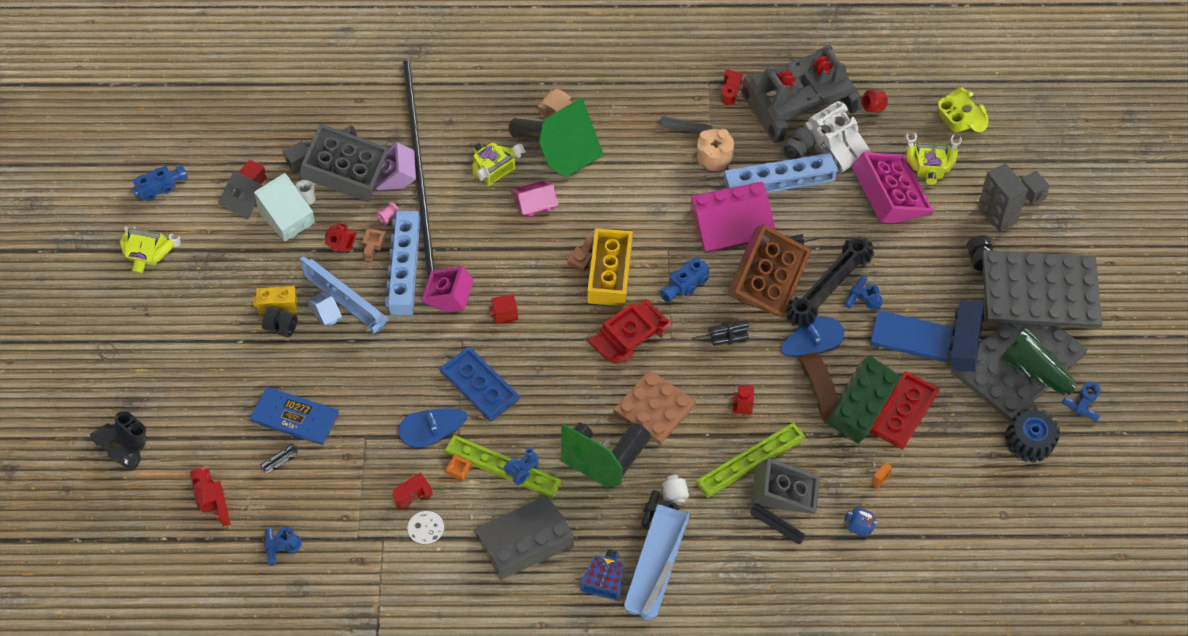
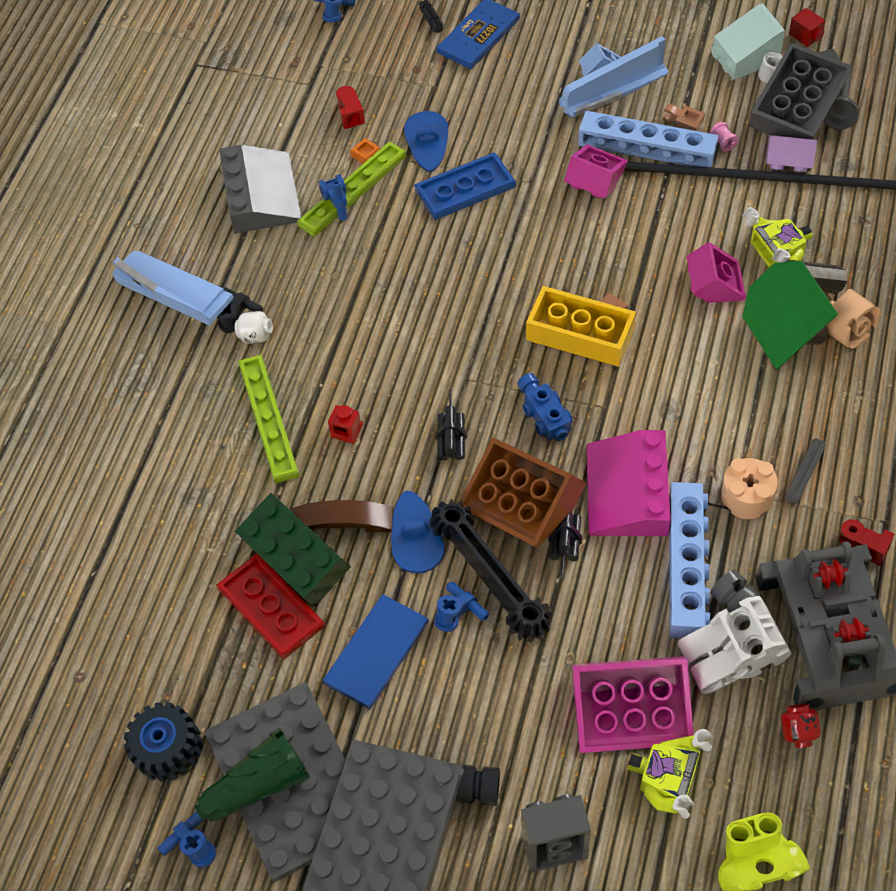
camera: 110 degrees right, 0 degrees up
(239, 194) = (786, 11): dark grey piece -> none
(279, 297) = (626, 30): yellow brick -> none
(279, 321) = (595, 27): black wheel -> none
(340, 237) = (695, 87): red brick -> none
(425, 527) = (308, 118): white sticker -> none
(504, 309) = (554, 218): red brick -> none
(596, 459) = (307, 240): green piece -> none
(604, 576) = (179, 244): torso -> none
(628, 330) = (490, 337): red piece -> none
(655, 406) = (374, 339): nougat plate -> none
(778, 524) = (172, 421): black axle -> none
(785, 487) = (211, 437): dark grey slope -> none
(860, 521) = (134, 501): blue head -> none
(881, 475) = (184, 544): orange tile -> none
(967, 336) = (339, 707): dark blue brick -> none

